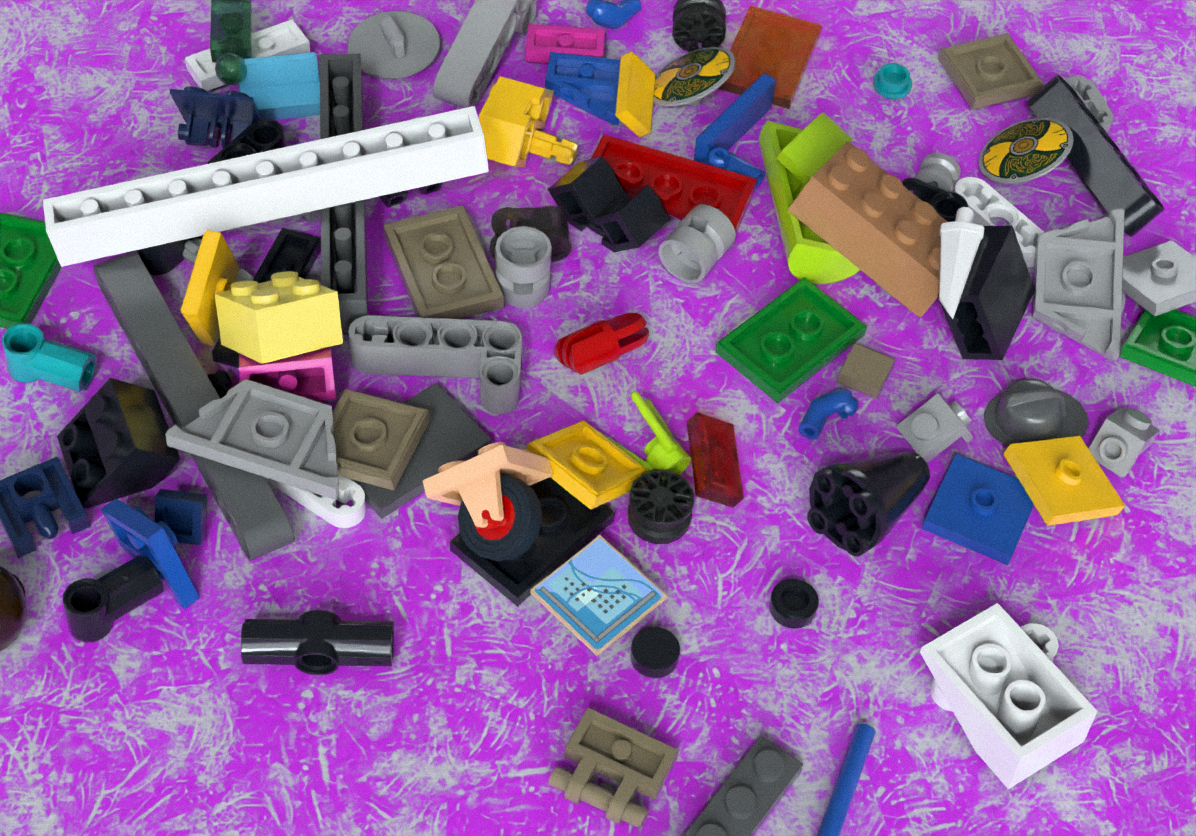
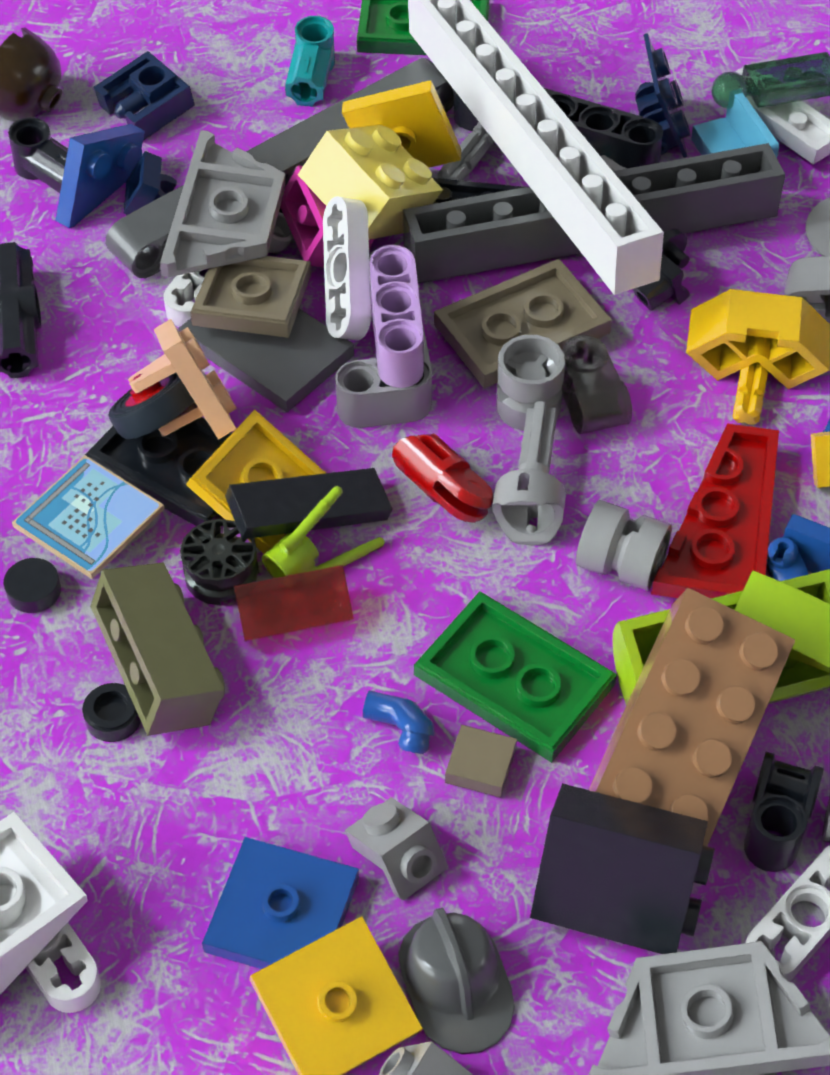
camera: 85 degrees right, 0 degrees up
(117, 444) = (234, 114): black slope -> none
(343, 352) = (346, 268): none -> white beam
(455, 323) = (396, 316): none -> lavender beam
(597, 201) = (660, 449): black brick -> none
(620, 432) = (283, 503): none -> black tile
(642, 289) = (531, 489): none -> light grey piece
(751, 553) = (157, 648): none -> olive brick
(865, 498) = (256, 761): black cone -> none
(957, 252) = (636, 795): white bar -> none

